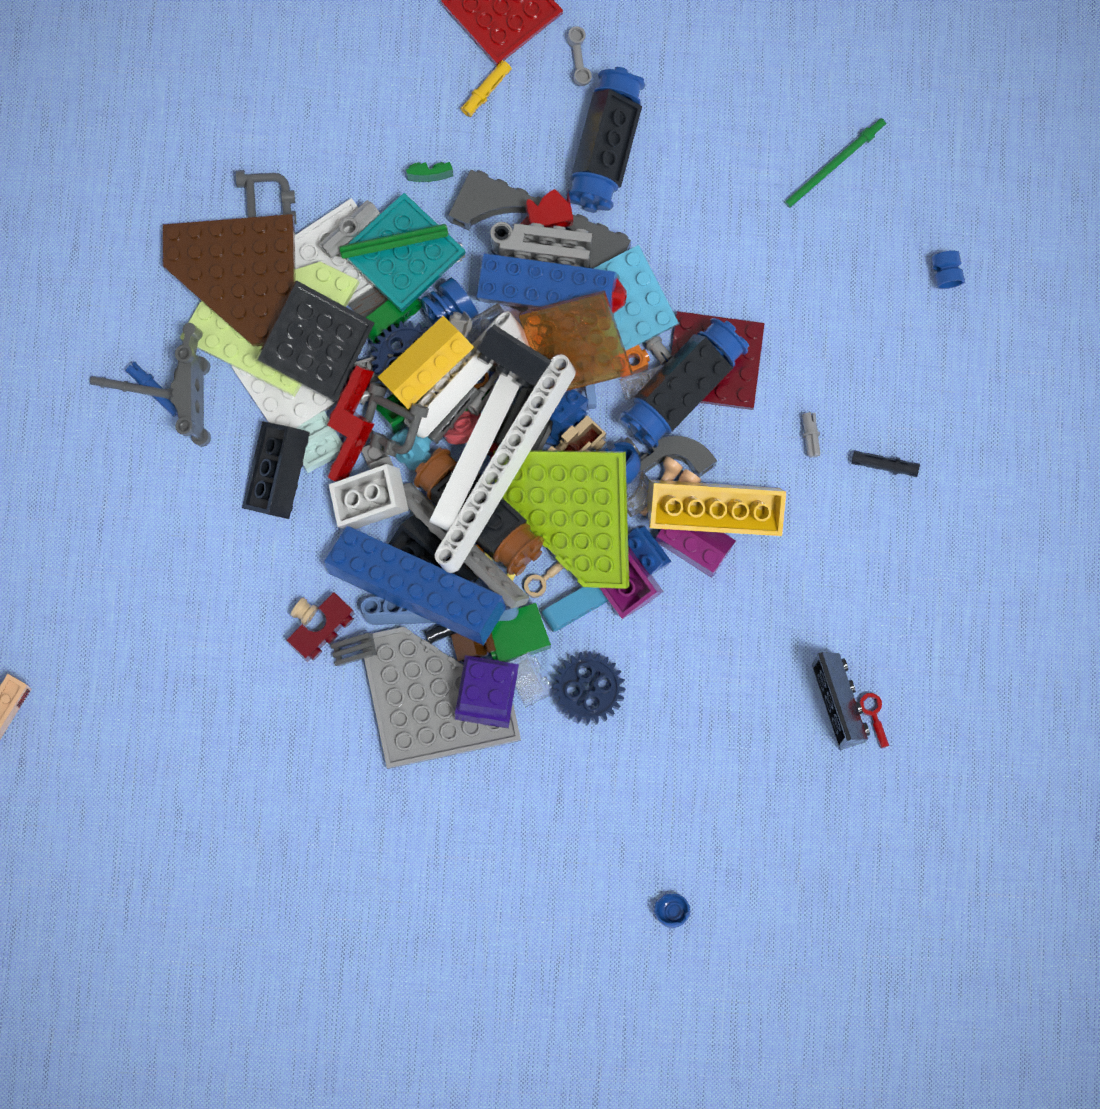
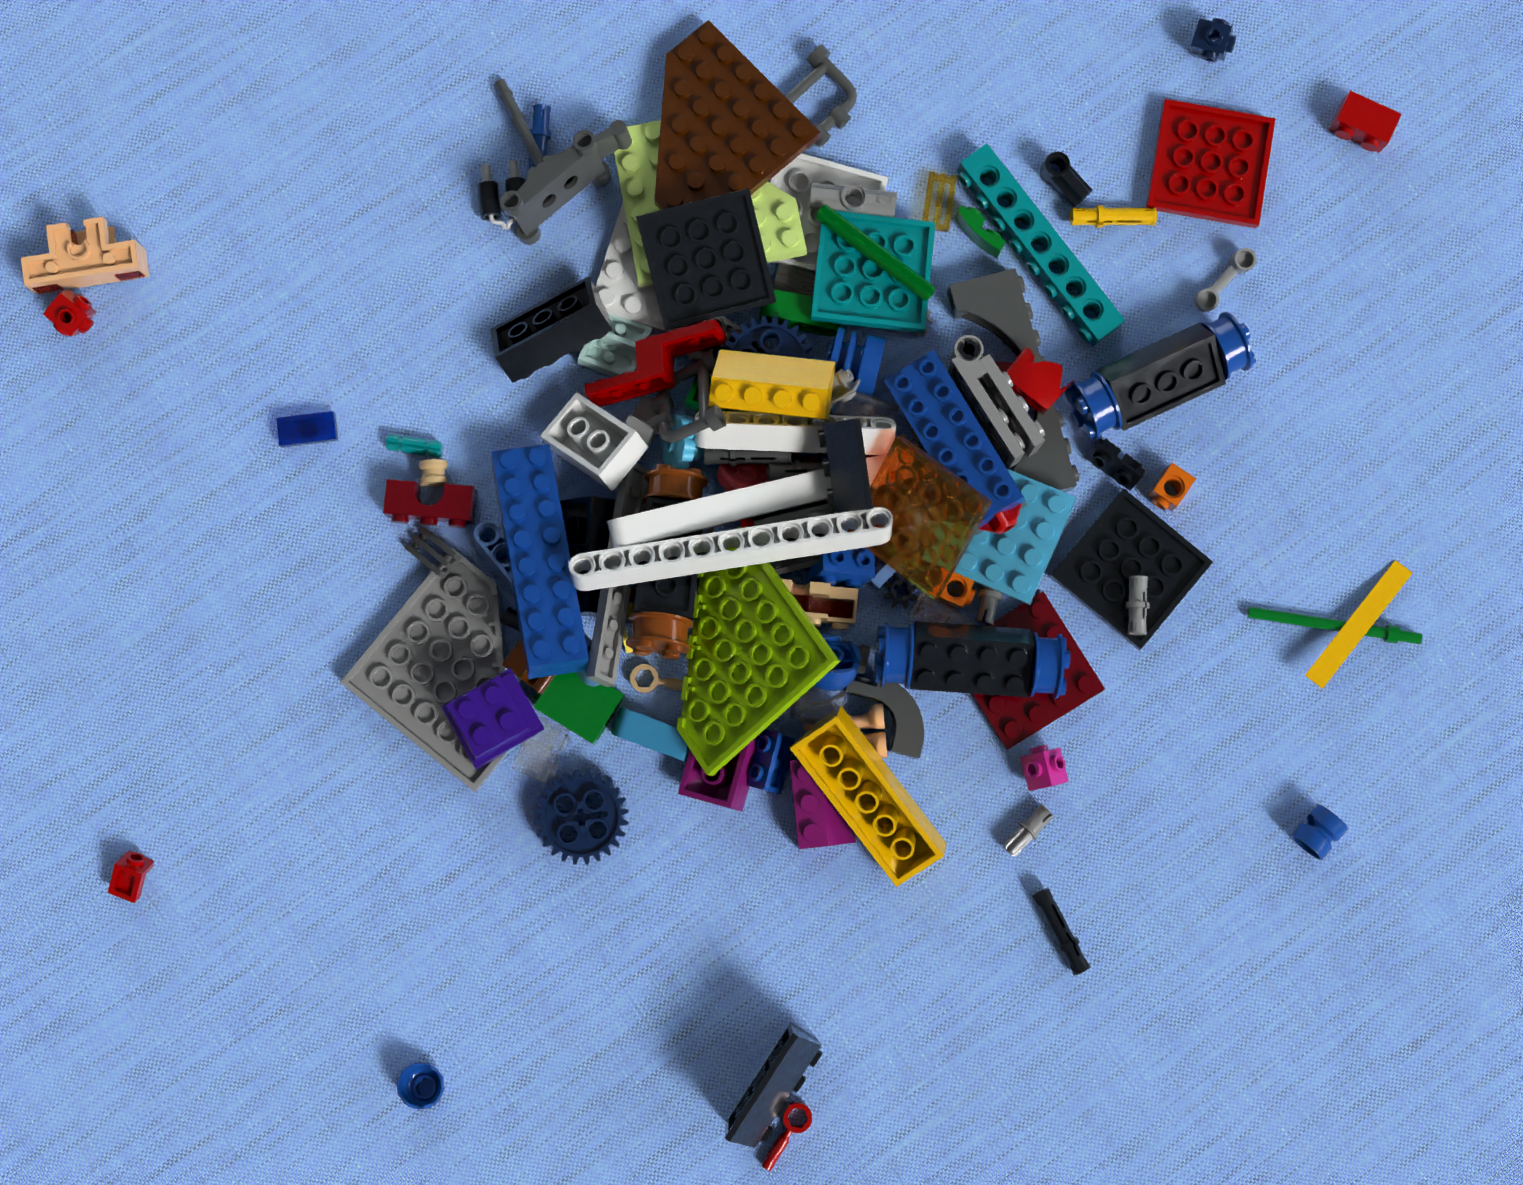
camera: 50 degrees right, 5 degrees up
(9, 751) = (70, 313): none -> red brick
(160, 443) = (489, 194): none -> black piece
(211, 666) = (307, 429): none -> clear blue plate
(276, 610) = (414, 445): none -> teal axle
(378, 168) = (942, 179): none -> clear yellow tile
(400, 989) = (129, 876): none -> red bracket
(443, 97) = (1066, 182): none -> black piece
(457, 137) = (986, 163): none -> teal brick
(611, 389) = (892, 593): none -> black gear
(644, 207) = (1104, 457): none -> black hinge
(674, 179) = (1179, 478): none -> orange brick
(706, 250) = (1124, 544): none -> black plate
(730, 263) = (1137, 605): none -> light grey pin
(781, 395) = (1044, 768): none -> dark pink brick
(846, 148) = (1358, 624): none -> yellow sticker

